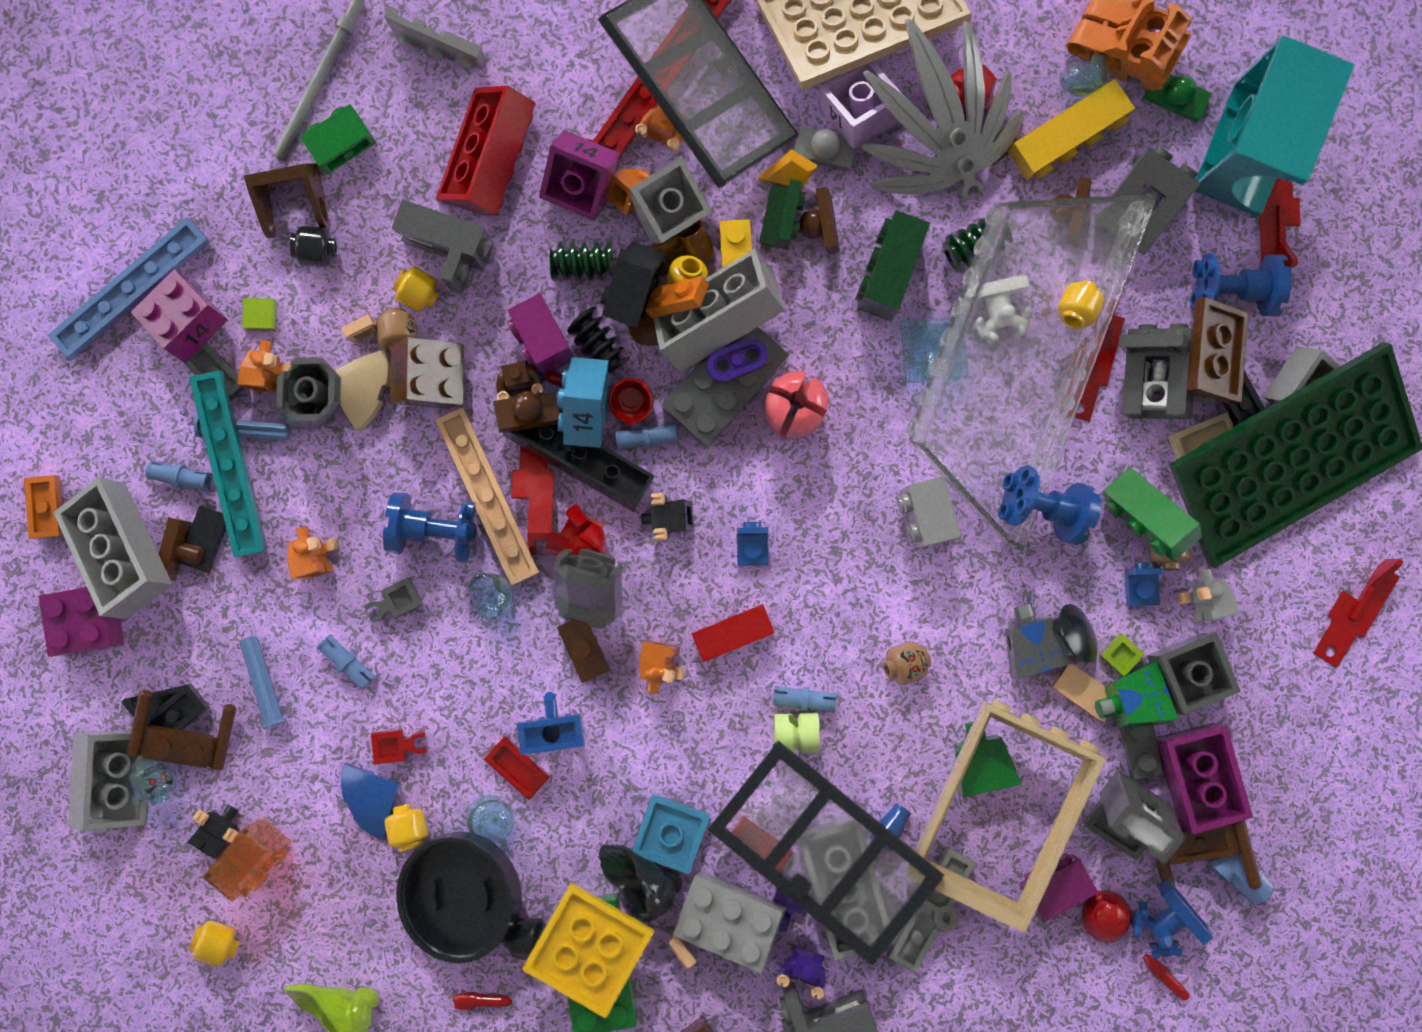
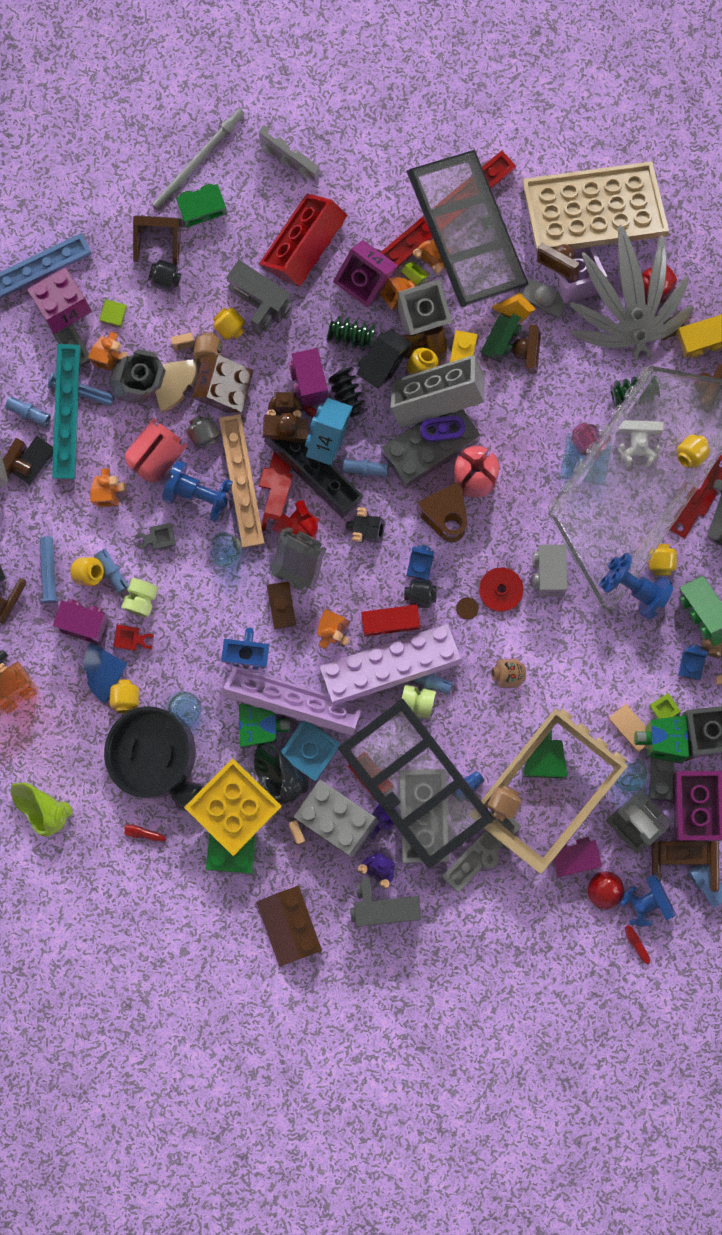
camera: 15 degrees right, 5 degrees down
(312, 672) = (87, 571): none -> yellow head
(319, 745) = (81, 622): none -> magenta brick
(360, 488) = (154, 452): none -> coral cylinder
(392, 689) = (140, 597): none -> yellowish green wheel
(418, 443) = (202, 431): none -> flat silver head
(516, 768) = (210, 675): red tile -> none
(595, 819) = (259, 726): none -> green torso
(631, 401) = (360, 439): red hair -> none
(632, 777) = (291, 700): none -> lavender plate
(645, 333) = (383, 394): reddish brown piece -> none
(646, 158) = (415, 273): none -> lime tile
(677, 297) = (411, 375): orange plate -> none
(748, 693) = (390, 664): none -> lavender plate
(763, 464) = (444, 507): none -> reddish brown hose
(764, 586) = (421, 593): none -> black head
(828, 588) = (467, 608): none -> reddish brown piece
(835, 90) = (559, 260): none -> reddish brown tile
(851, 556) = (501, 601): none -> red plate
(891, 265) = (569, 391): dark green brick -> none
(929, 322) = (584, 436): none -> clear pink head
(951, 848) = (504, 802): none -> medium nougat head
(1034, 644) = (603, 683): dark grey torso -> none
(1073, 460) = (663, 560): none -> yellow head
(1077, 634) = (634, 682): black dish -> none
(1115, 757) = (633, 777): none -> clear light blue hair

